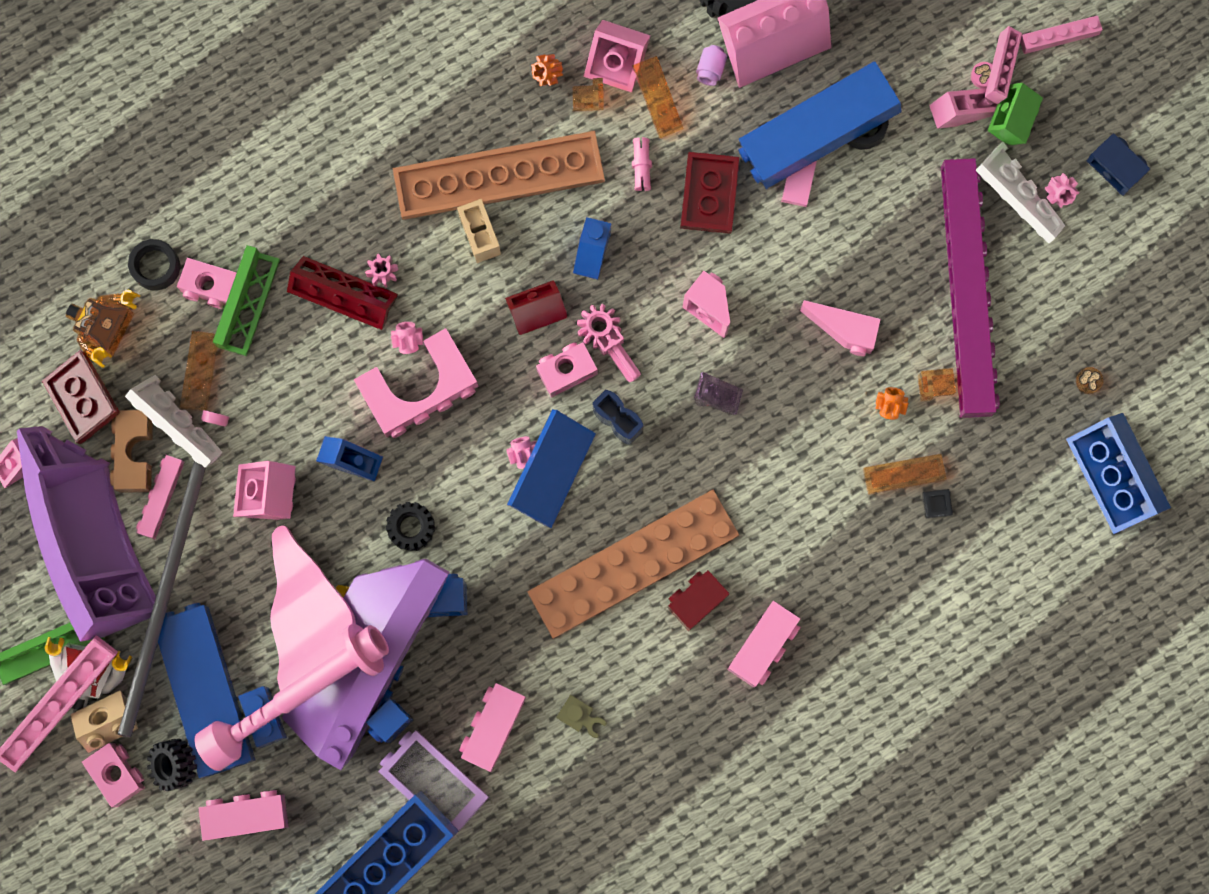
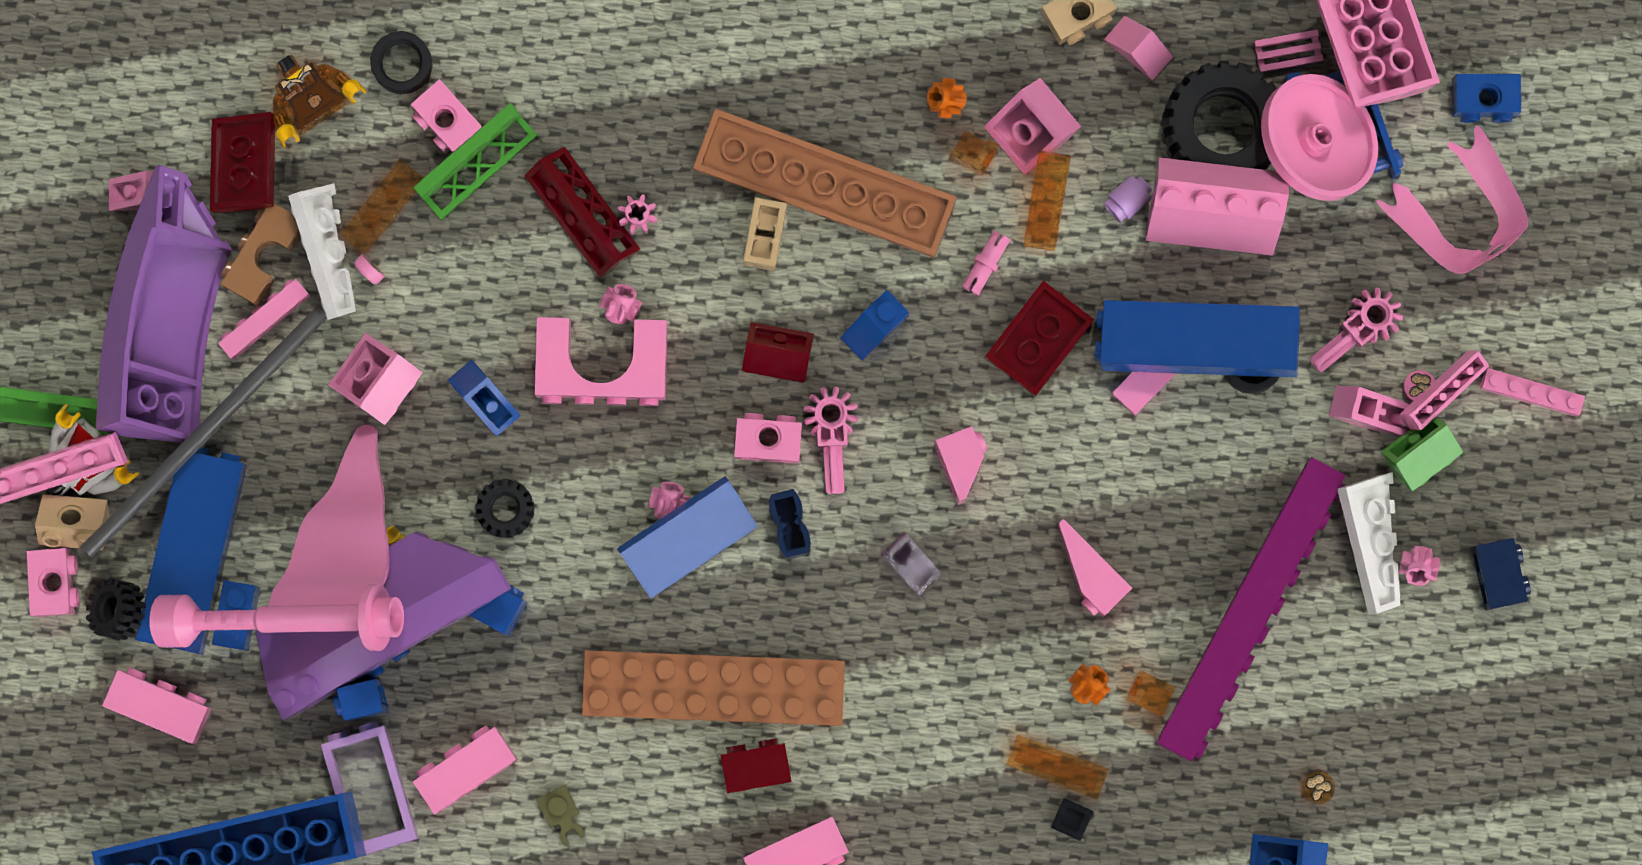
camera: 30 degrees right, 5 degrees up
(920, 59) = (1359, 328): none -> bright pink gear

